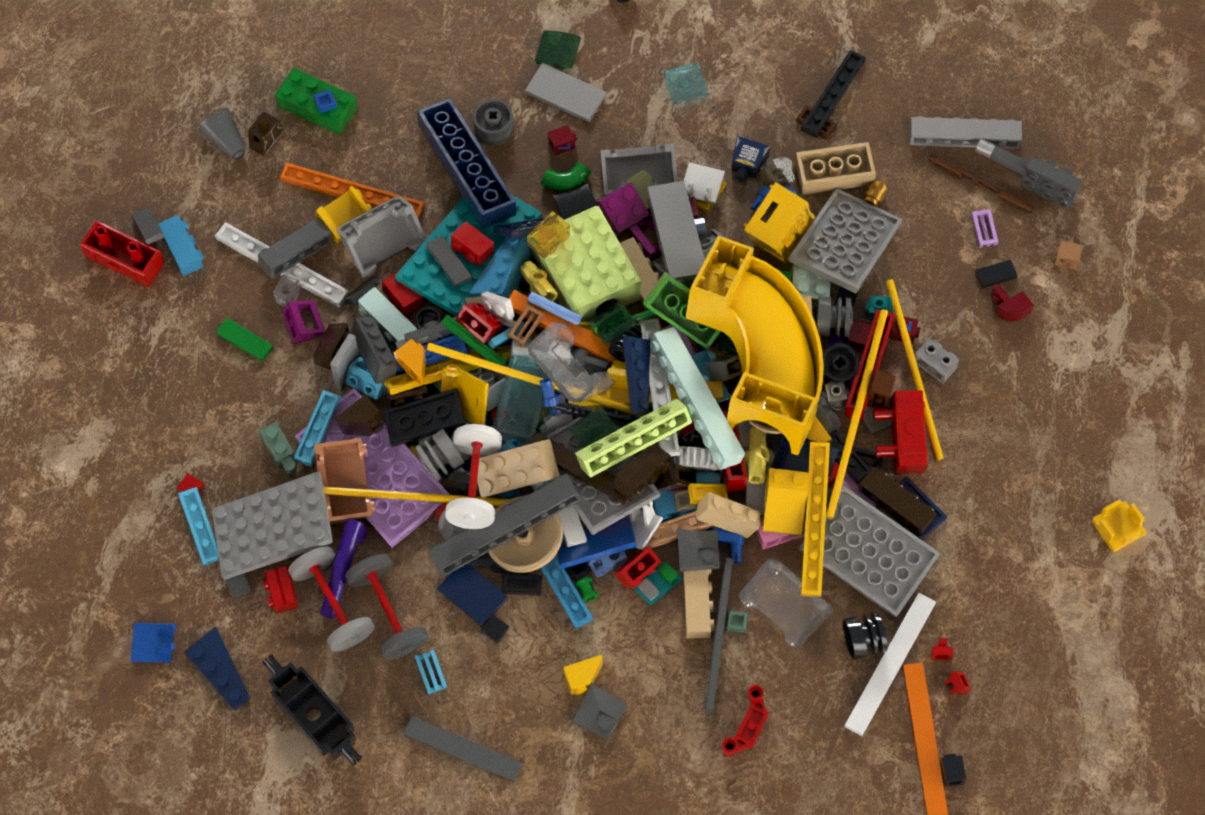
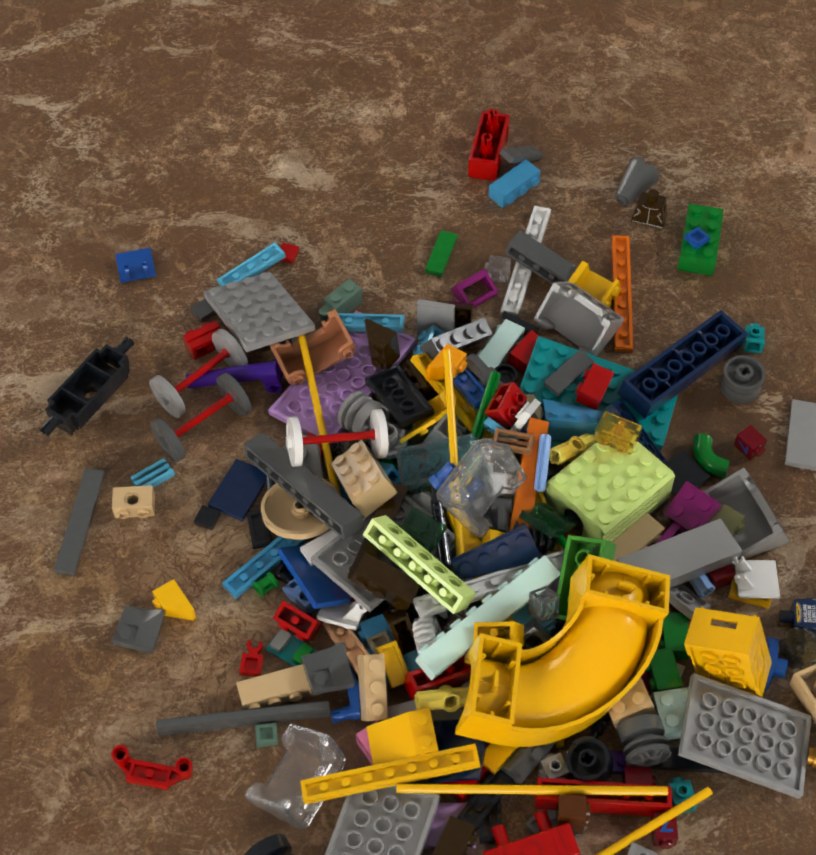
camera: 75 degrees right, 10 degrees down
(217, 667) = (121, 317): dark blue wing -> none
(446, 92) = (755, 335): none -> teal brick
(458, 681) = (125, 496): none -> tan brick
(664, 618) = (252, 662): none -> red plate
(699, 349) = (543, 604): none -> clear brick
(722, 391) = (506, 630): none -> yellow slope

